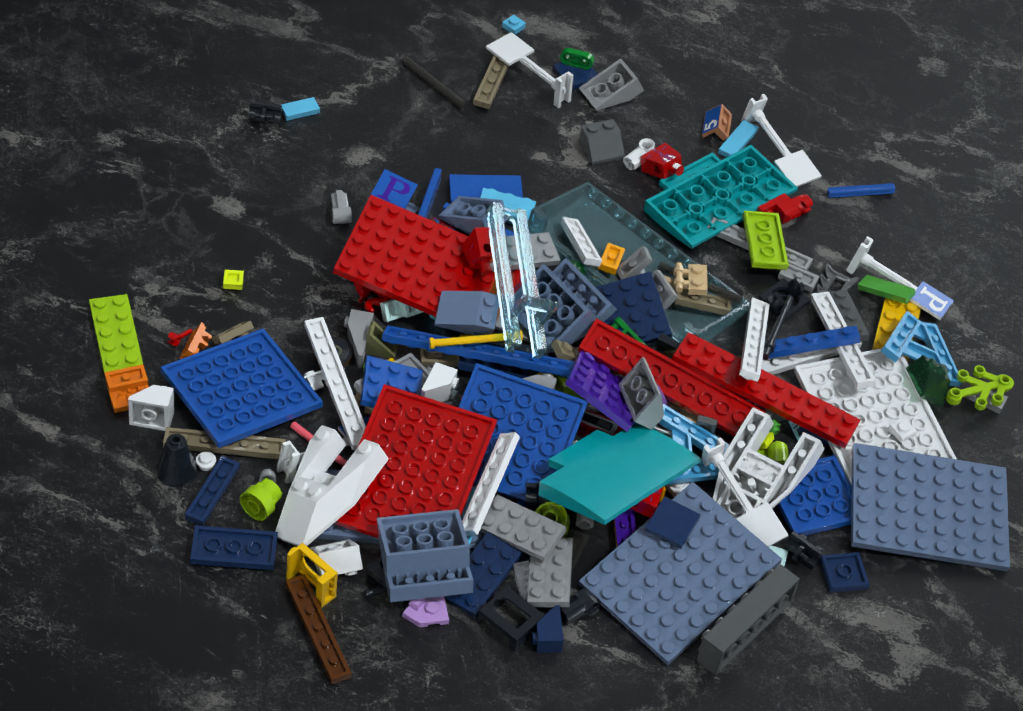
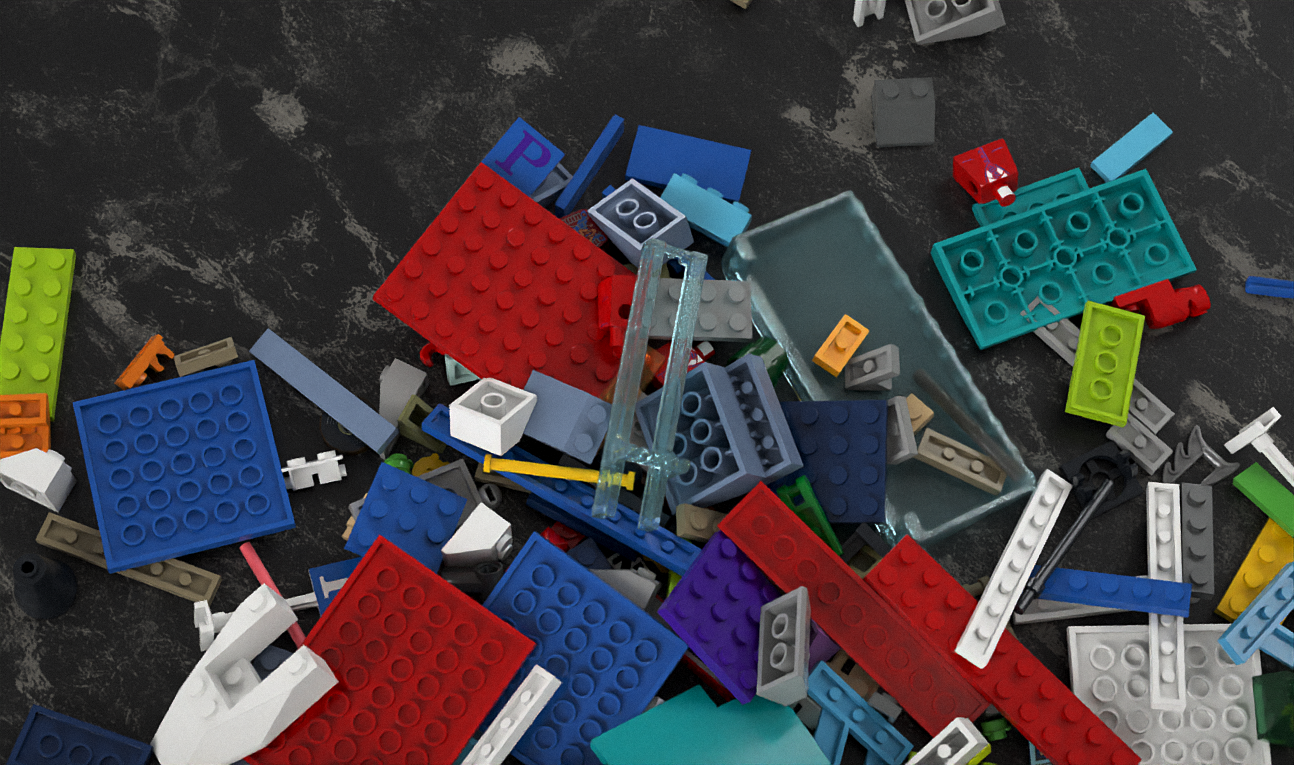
camera: 20 degrees right, 20 degrees up
(175, 339) = (120, 348): red hand -> none
(206, 461) = (91, 583): white plate -> none
(212, 491) = (82, 643): dark blue plate -> none
(233, 279) = (240, 256): neon yellow plate -> none
(260, 499) = (145, 681): lime piece -> none
(267, 473) = (172, 636): light grey hinge -> none
(296, 330) = (324, 391): none -> sand blue tile
(336, 380) = (324, 491): white plate -> none
(340, 210) = (446, 161): light grey piece -> none
(425, 318) = (491, 415): none -> white slope
(580, 241) = (800, 305): white plate -> none
(633, 159) = (942, 155): white piece -> none
(696, 277) = (961, 425): tan plate -> none
(718, 121) = (1107, 109): panel -> none
(794, 166) = (1209, 223): white piece -> none

